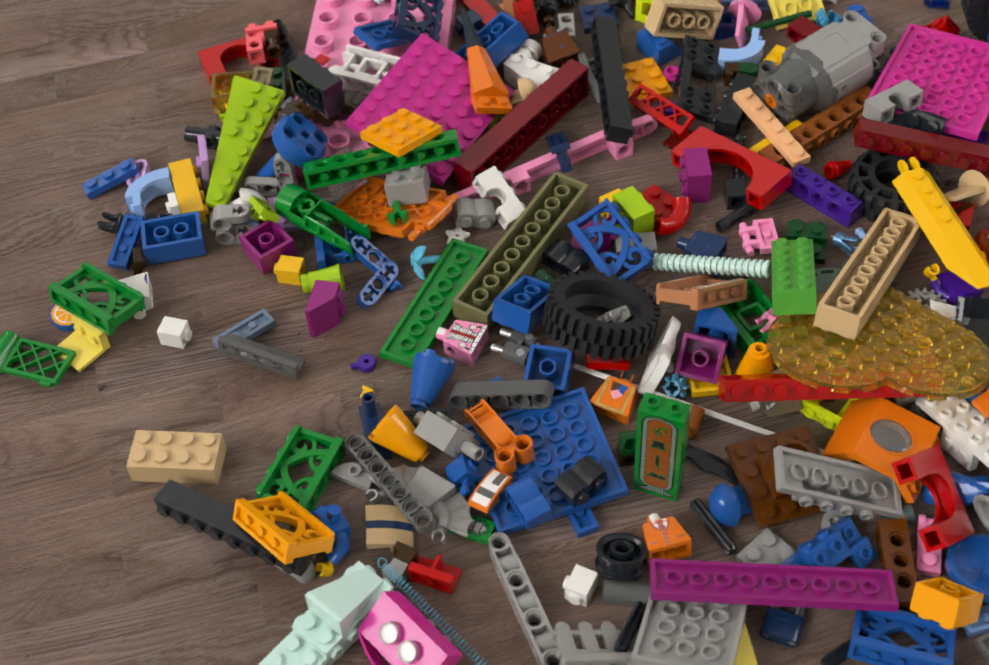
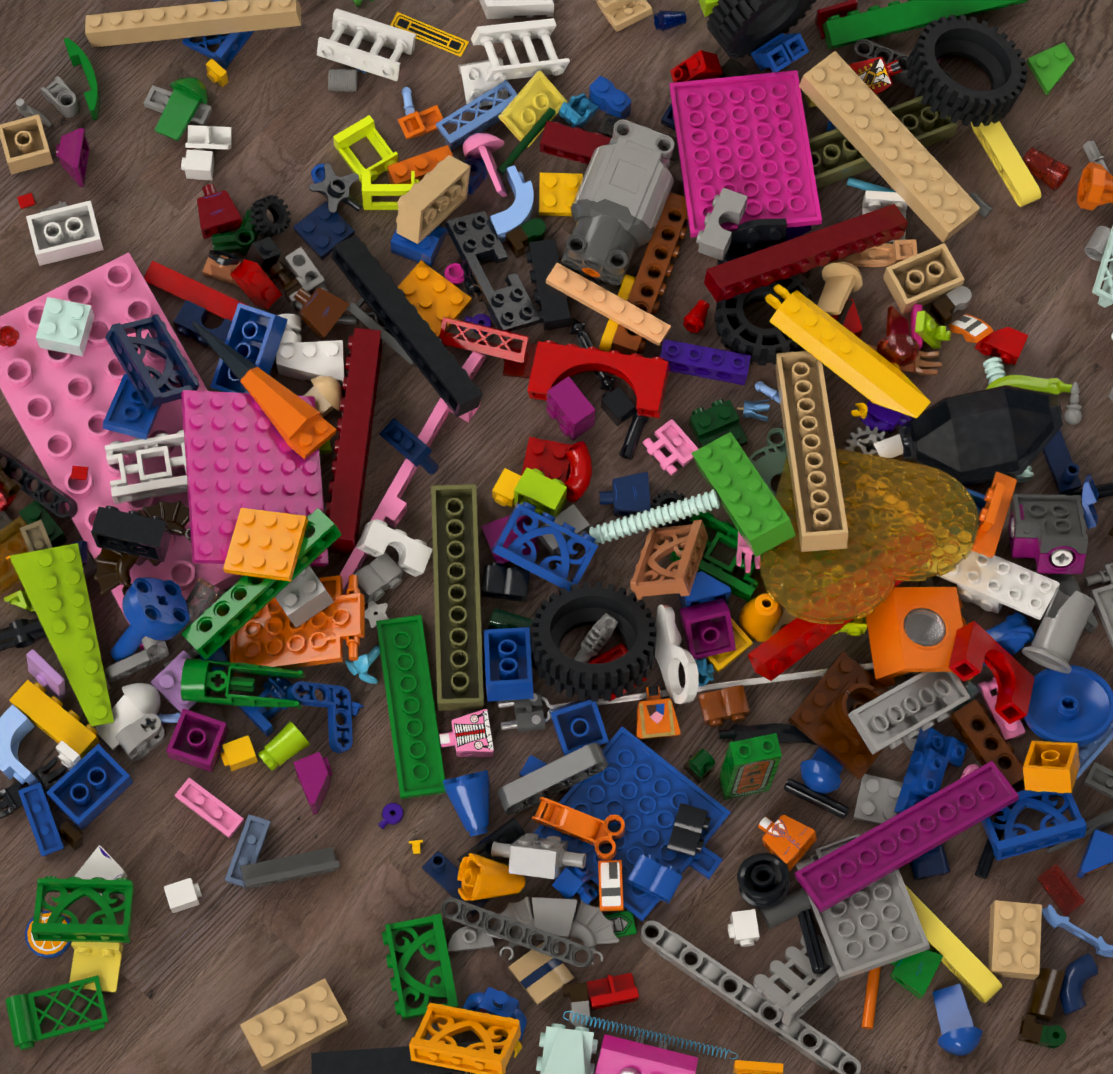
camera: 40 degrees left, 20 degrees up
(241, 292) = (209, 808): none -> bright pink plate
(262, 210) = (170, 706): lime plate -> none
(397, 213) = (317, 636): green bar -> none

